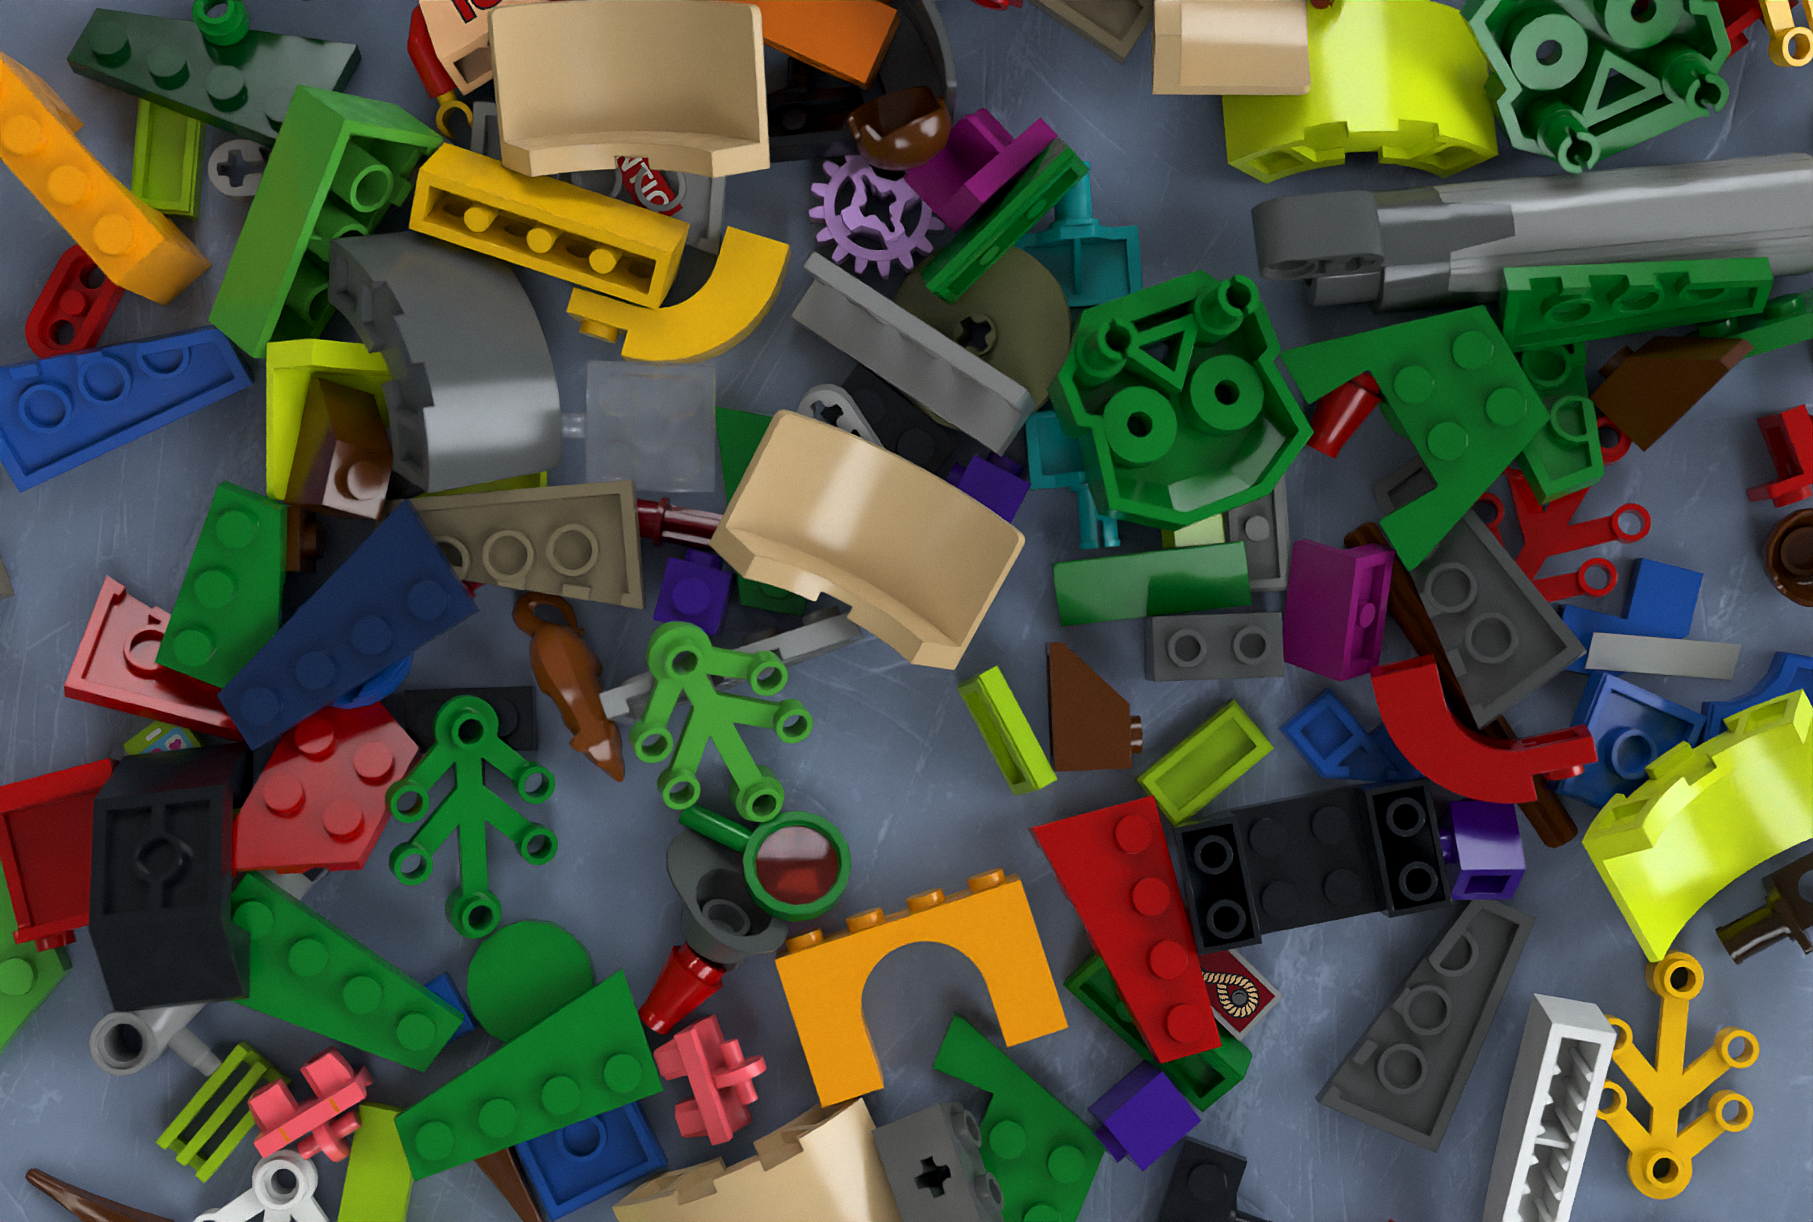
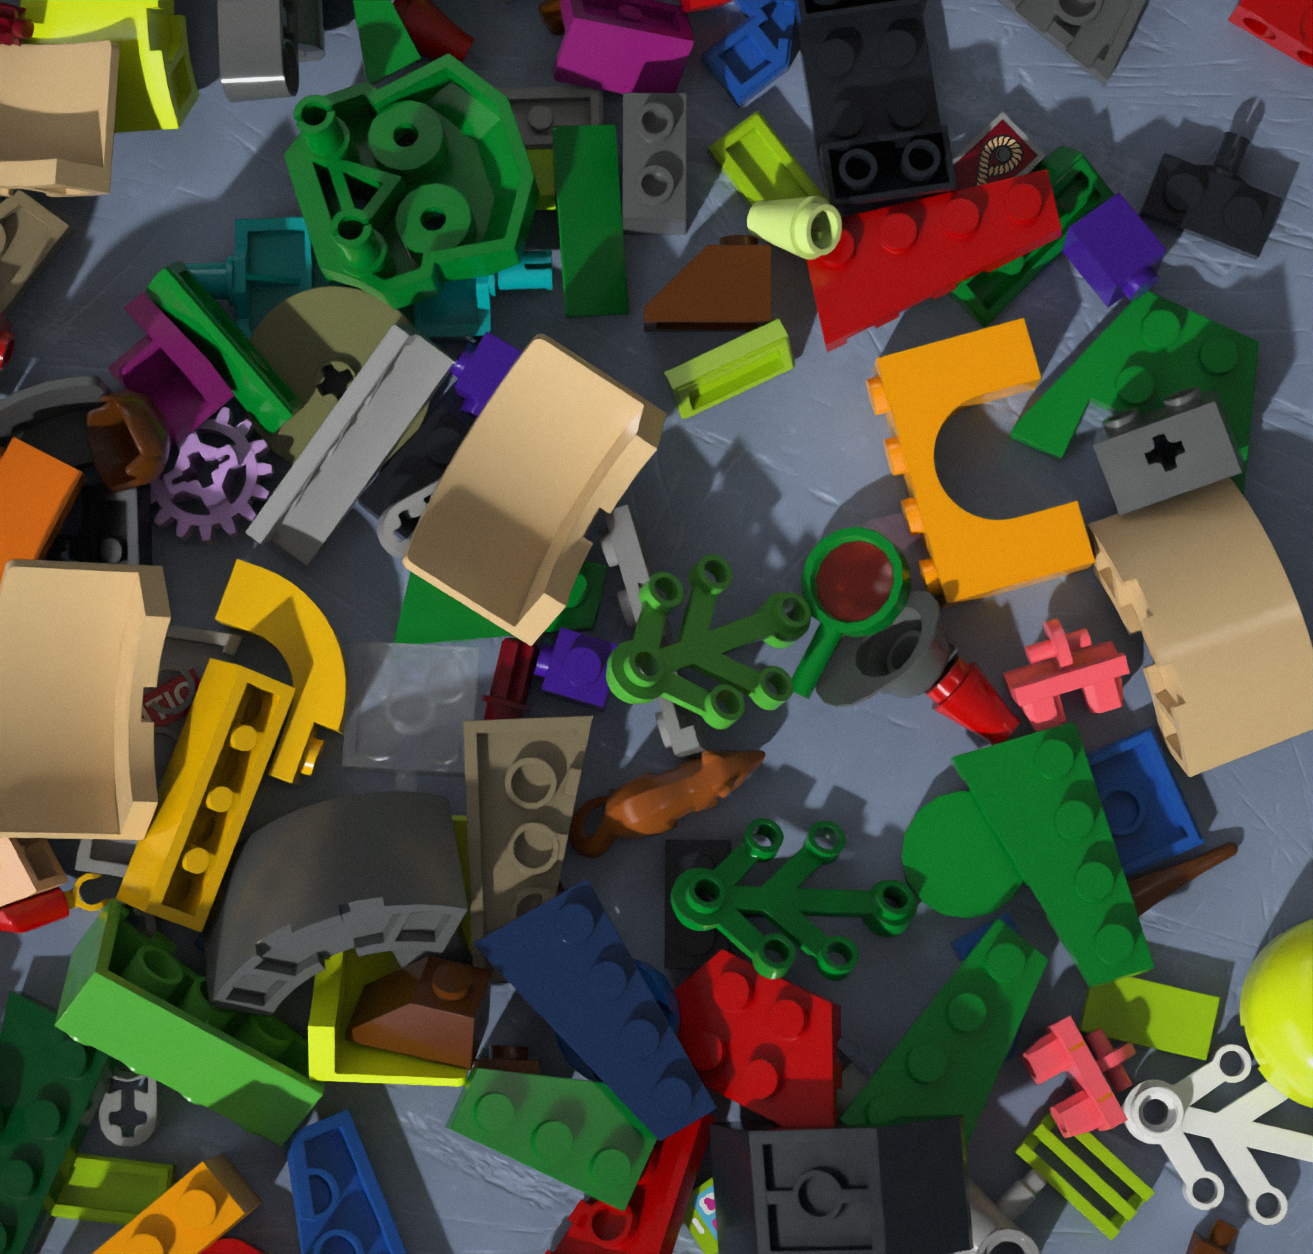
camera: 90 degrees left, 5 degrees down
(1152, 794) = (797, 225): none -> yellowish green cone

